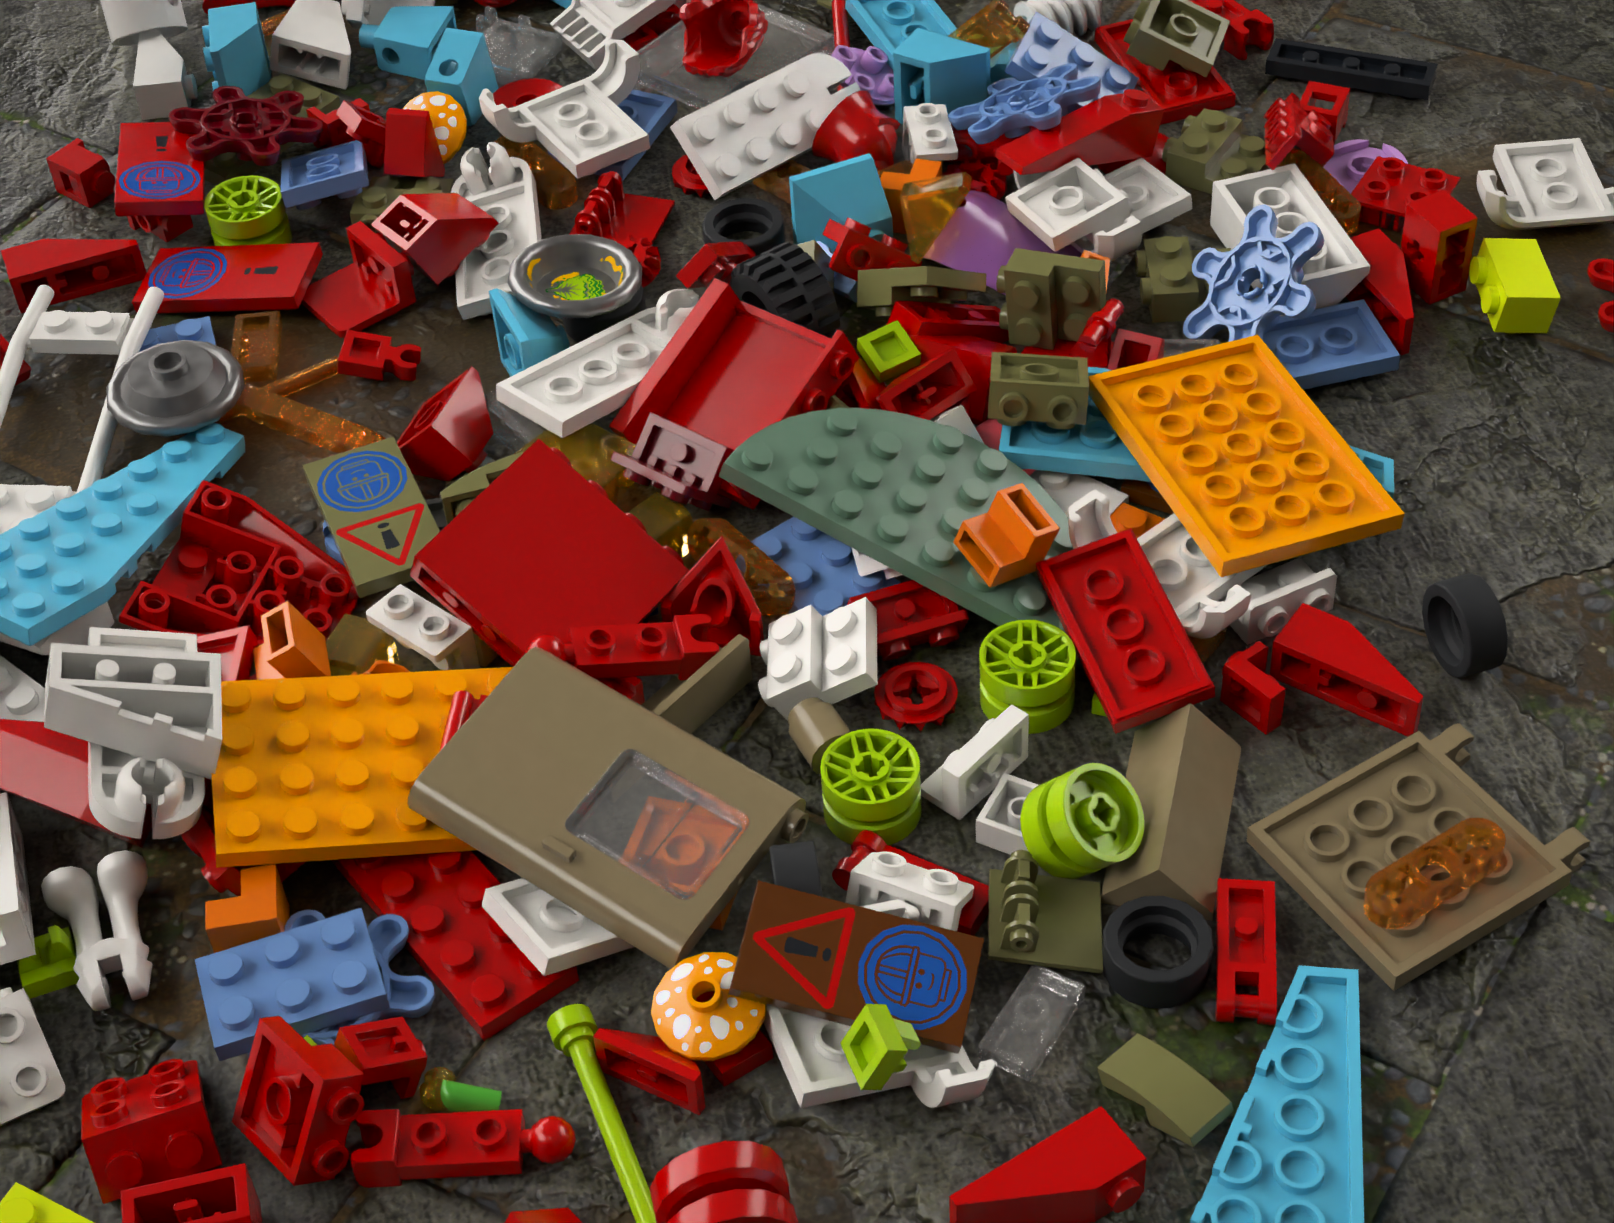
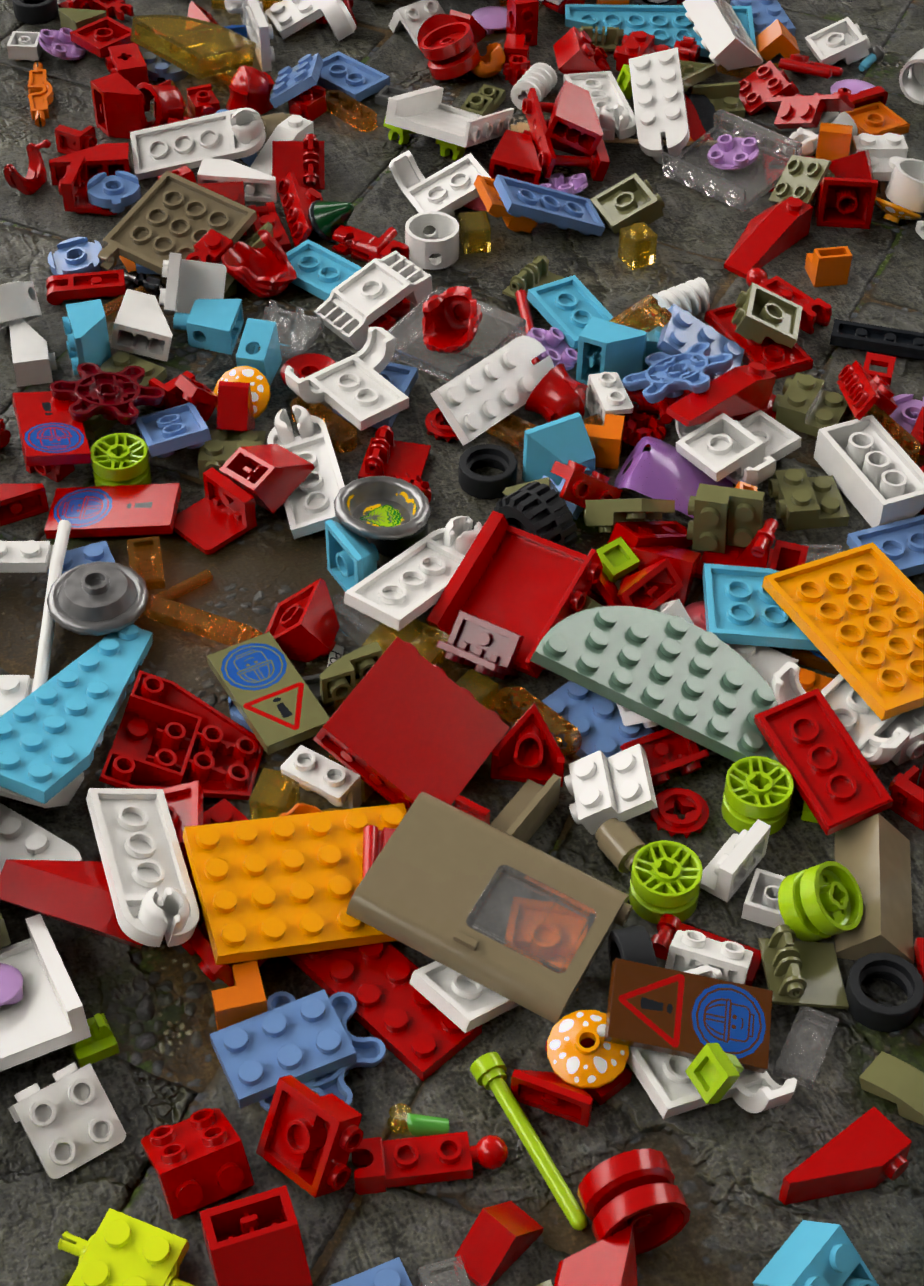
camera: 10 degrees left, 0 degrees up
(74, 897) = (137, 978): white piece -> none
(138, 702) = (148, 846): white wedge -> none
(290, 646) = (233, 799): orange piece -> none
(373, 355) = (234, 569): red plate -> none
(384, 1053) = (364, 1094): red bracket -> none
(635, 648) = (482, 787): red plate -> none
(712, 262) = (481, 497): red plate -> none
(928, 208) = (627, 452): clear yellow slope -> none
(1007, 537) = (735, 697): orange piece -> none
(1038, 389) = (732, 586): olive plate -> none
(1257, 256) = (859, 485): medium blue plate -> none

